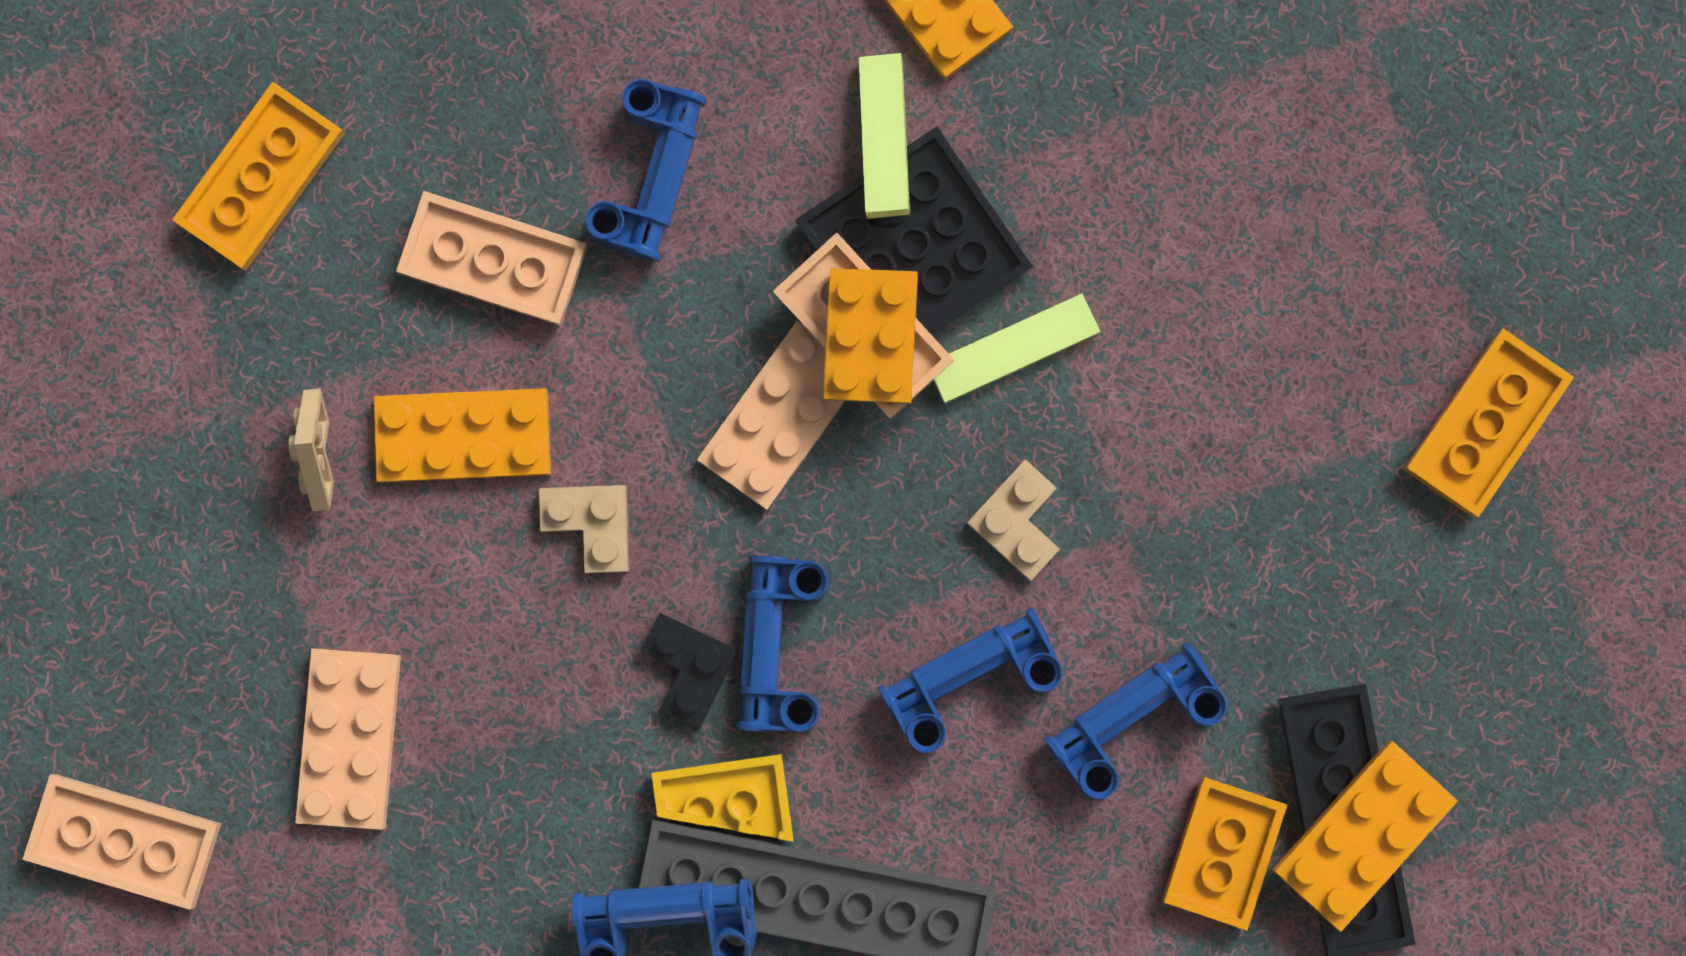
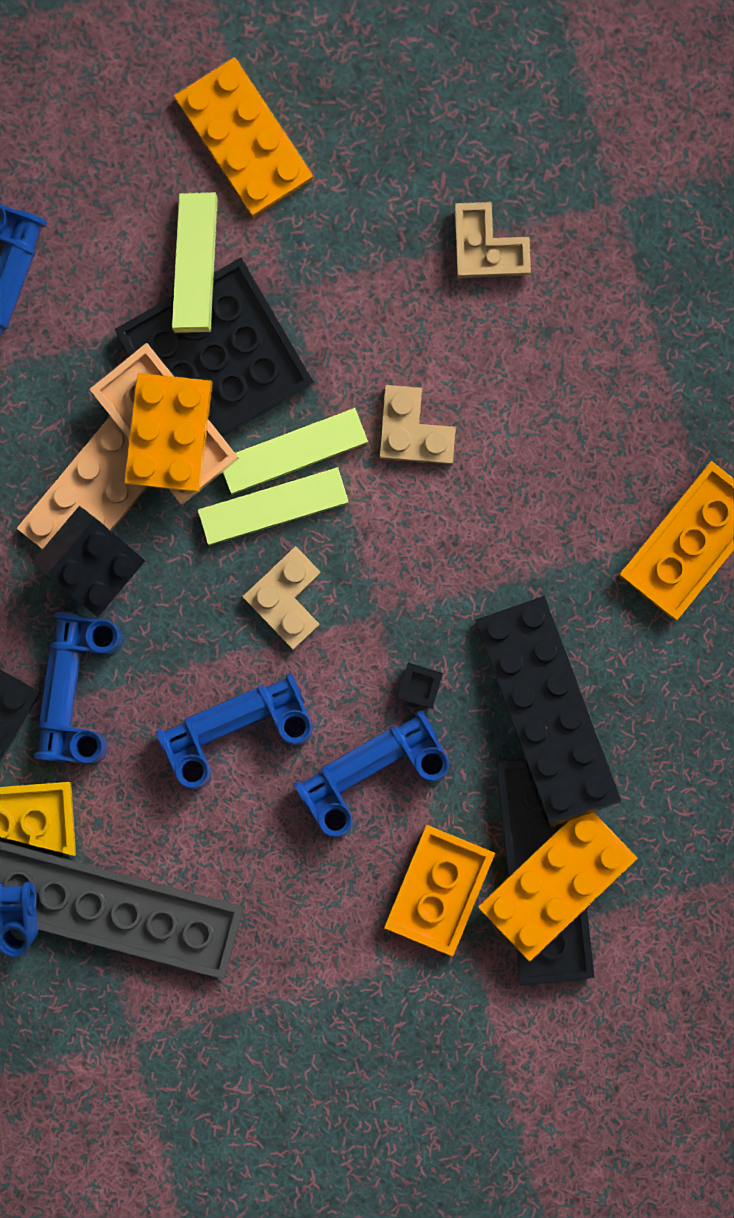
camera: 10 degrees right, 0 degrees up
(786, 493) = (88, 561): none -> black brick
(994, 414) = (273, 506): none -> yellowish green tile
(1144, 325) = (407, 439): none -> tan plate
(1183, 613) = (420, 685): none -> black plate
(1215, 104) = (481, 253): none -> tan plate
(1337, 635) = (548, 711): none -> black plate

